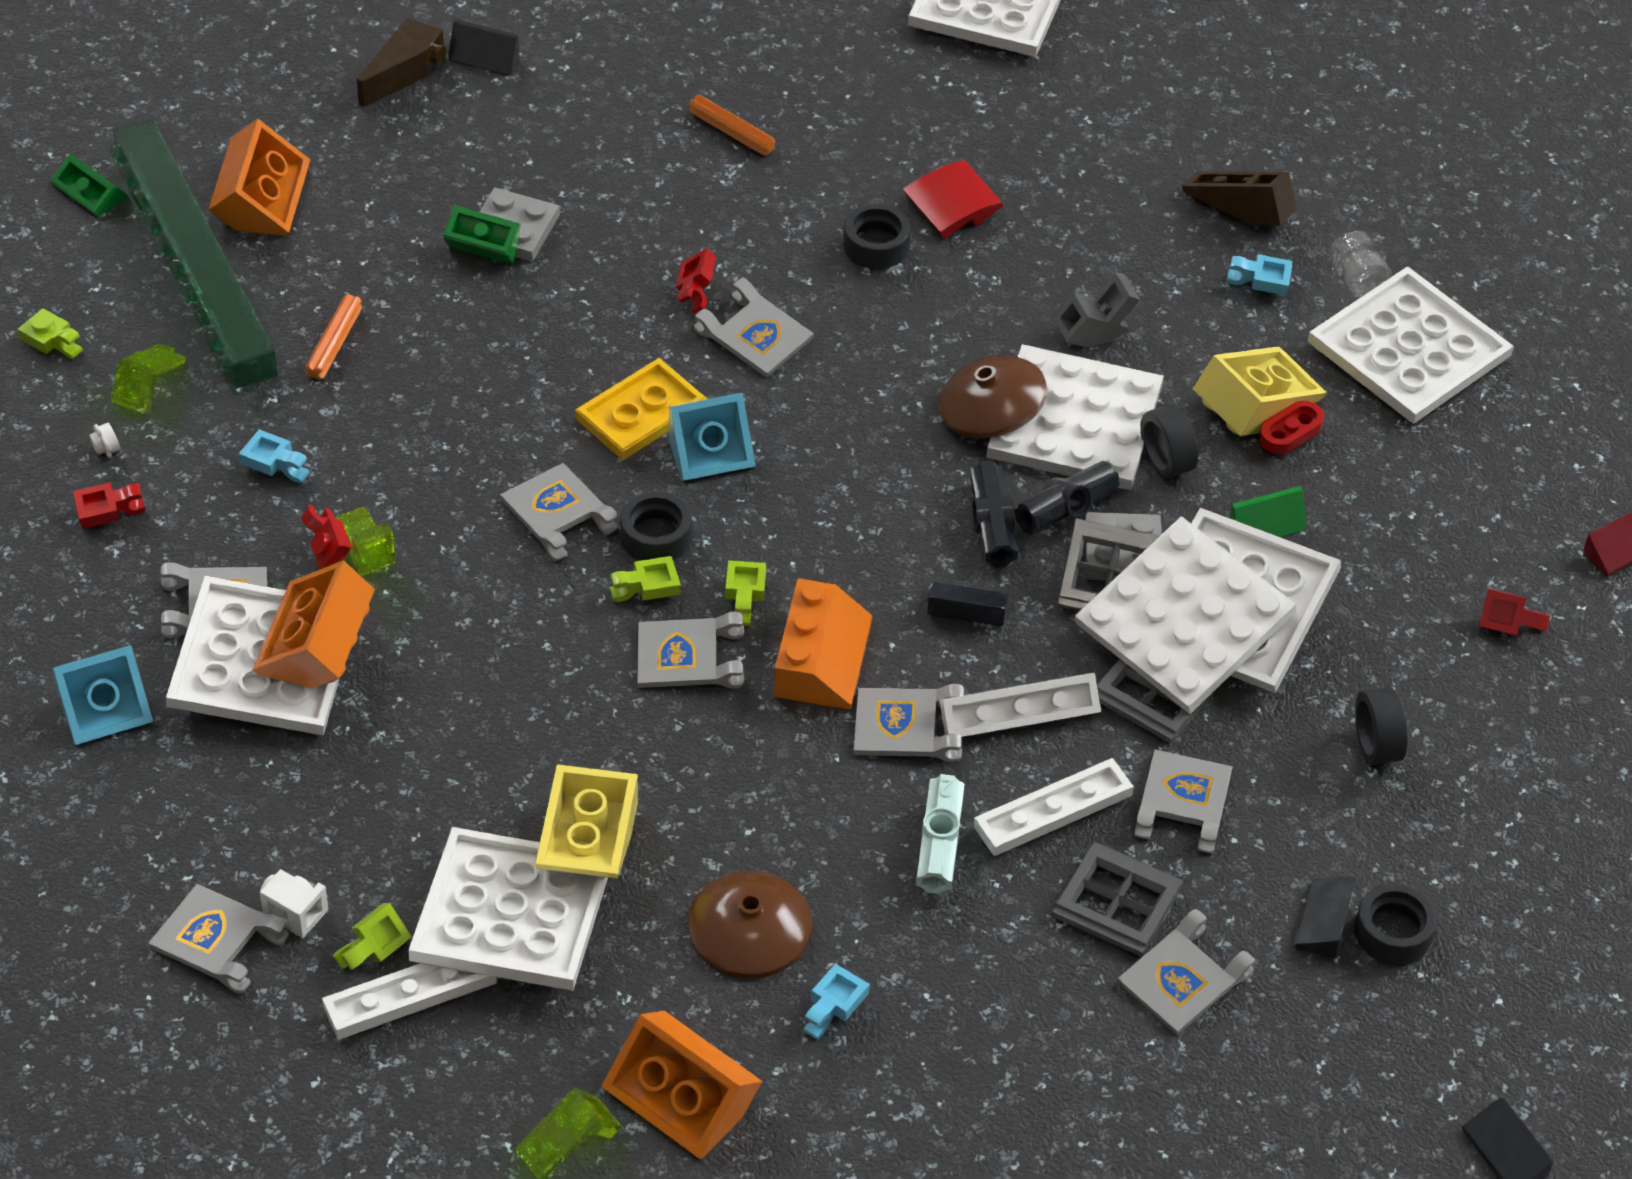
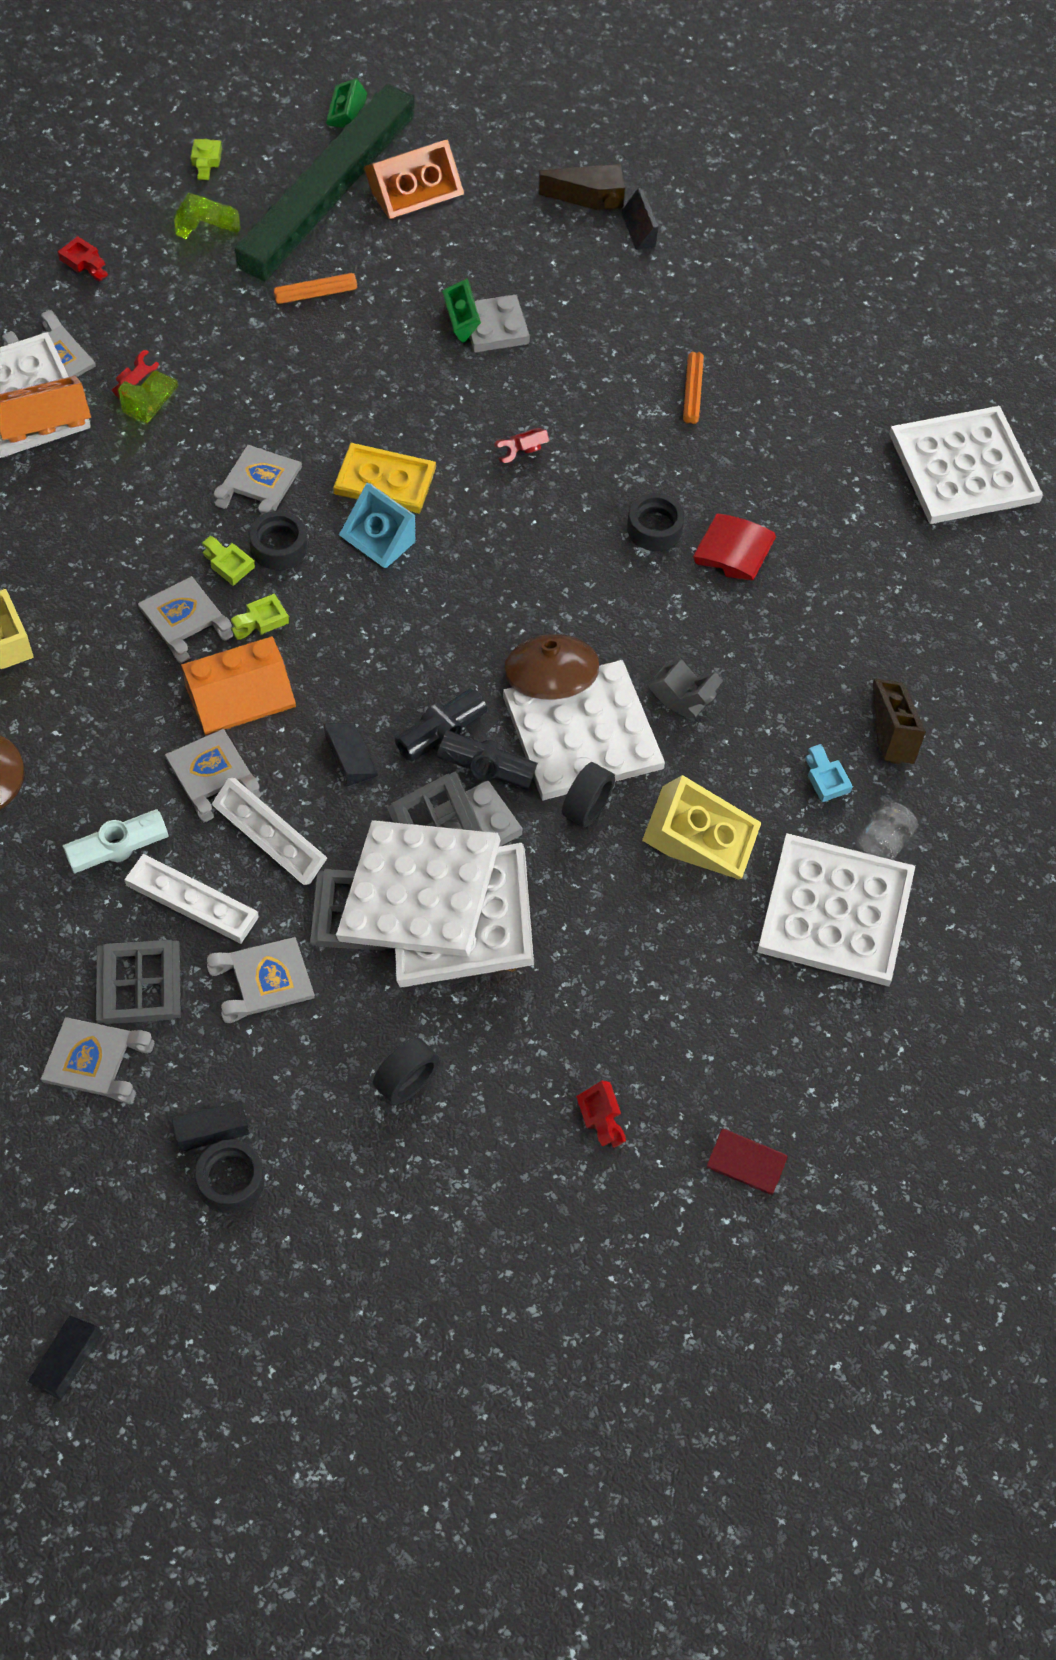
camera: 55 degrees right, 10 degrees up
(104, 440) = (136, 228): white plate -> none
(269, 453) = (185, 311): medium azure plate -> none
(757, 333) = (508, 506): light grey flag -> none
(1274, 513) = (574, 899): green slope -> none
(1287, 428) = (681, 868): red plate -> none

